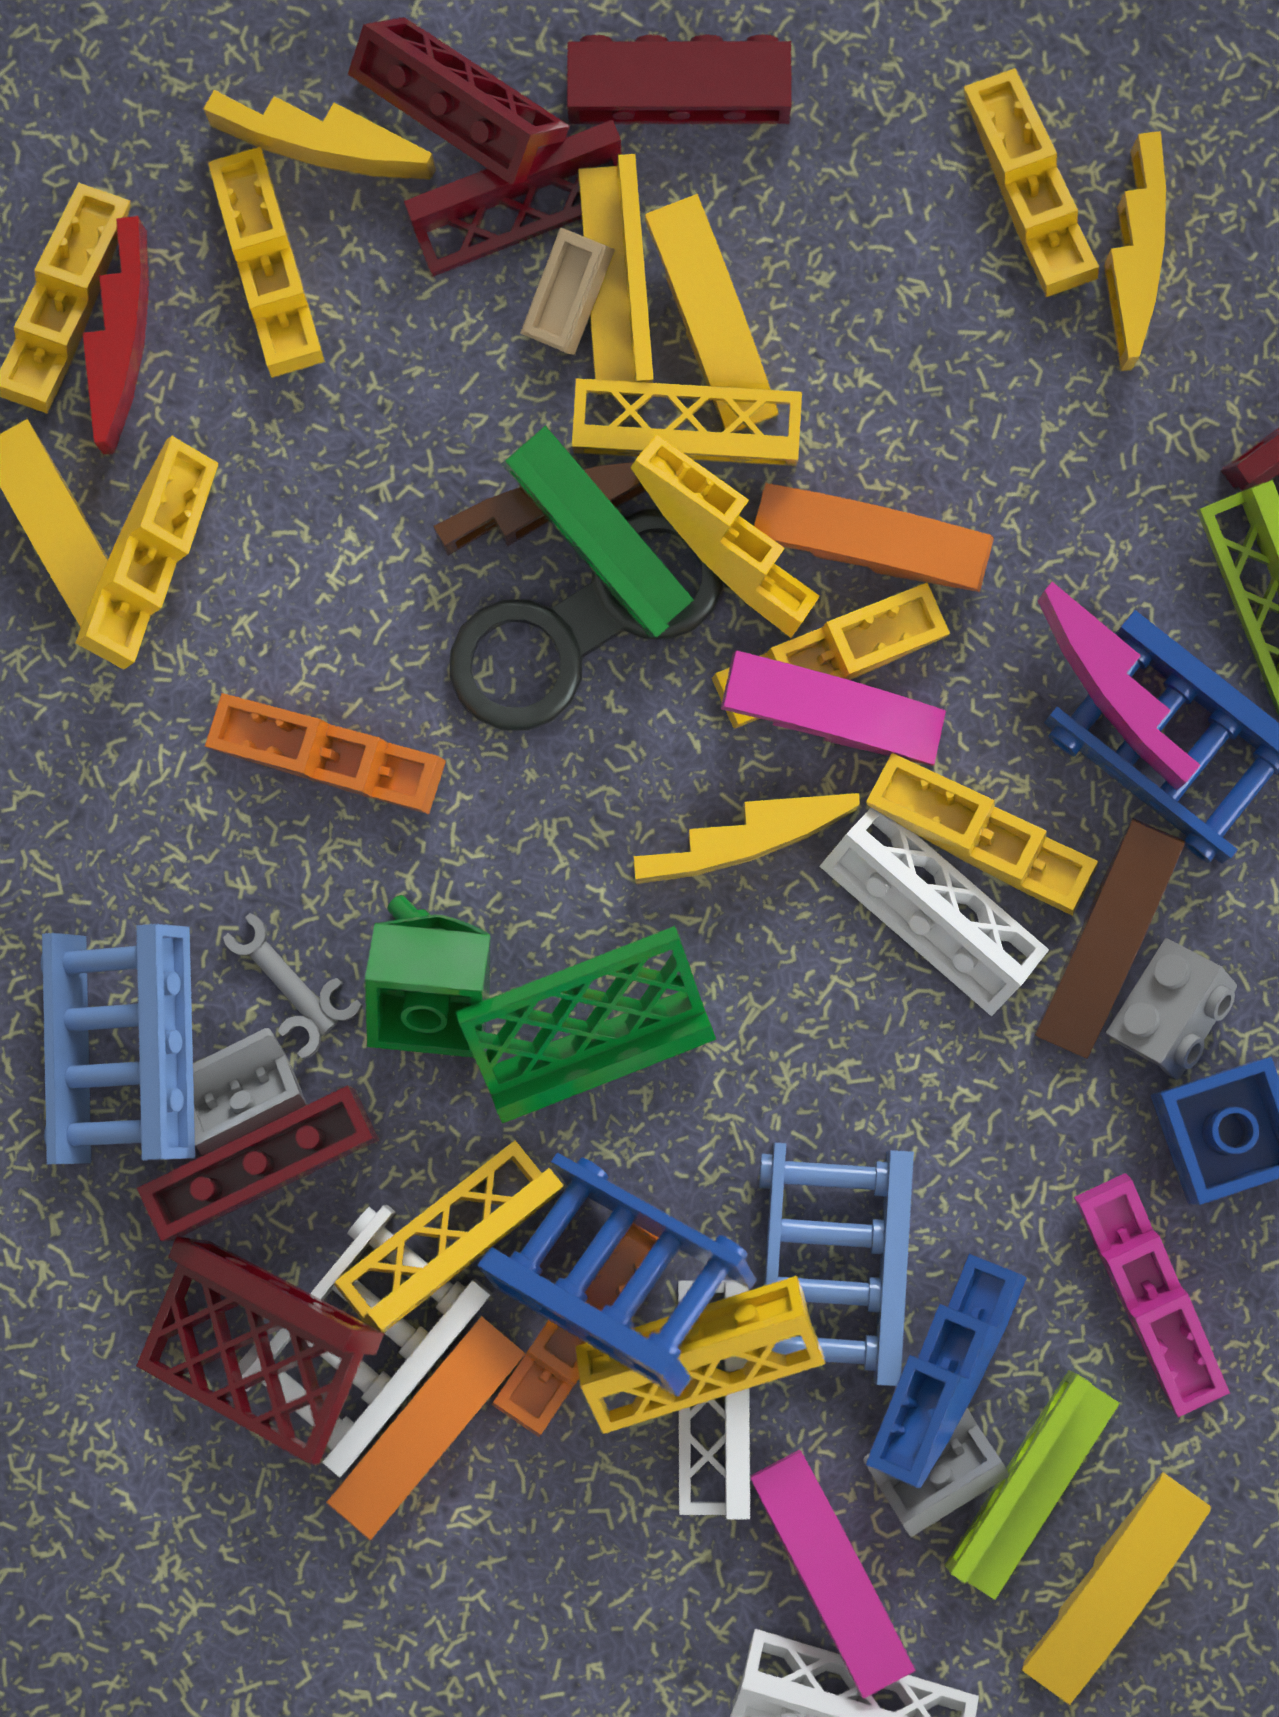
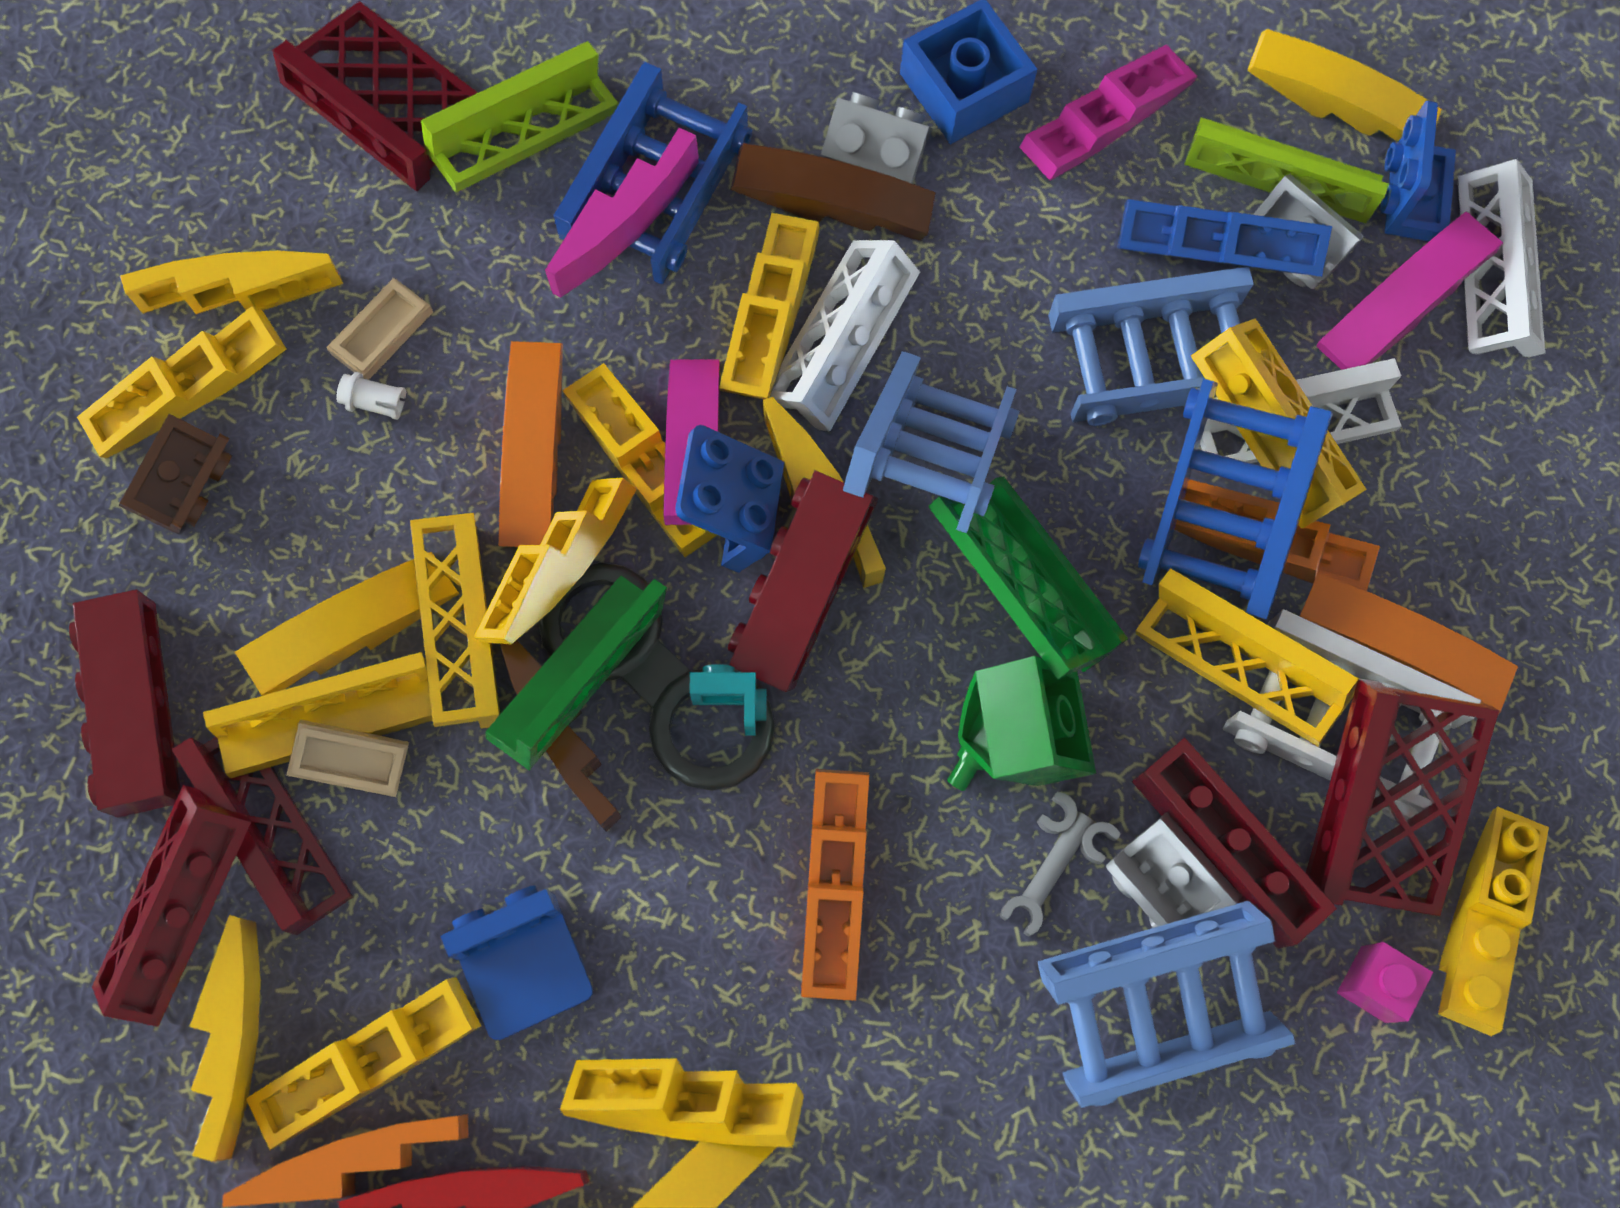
camera: 110 degrees left, 10 degrees down
(83, 1280) = (1385, 982): none -> dark pink brick
(117, 1416) = (1488, 920): none -> yellow slope
(173, 216) = (332, 1168): none -> orange slope
(321, 425) = (519, 962): none -> blue bracket
(548, 676) = (723, 686): none -> teal bracket
(640, 786) = (802, 581): none -> dark red brick
(750, 727) = (731, 494): none -> blue bracket
(805, 931) = (897, 410): none -> medium blue fence
(920, 163) = (174, 474): none -> reddish brown bracket
(966, 1638) = (1420, 179): none -> blue bracket
(970, 377) = (370, 395): none -> white pin
(1051, 401) = (380, 329): none -> tan tile

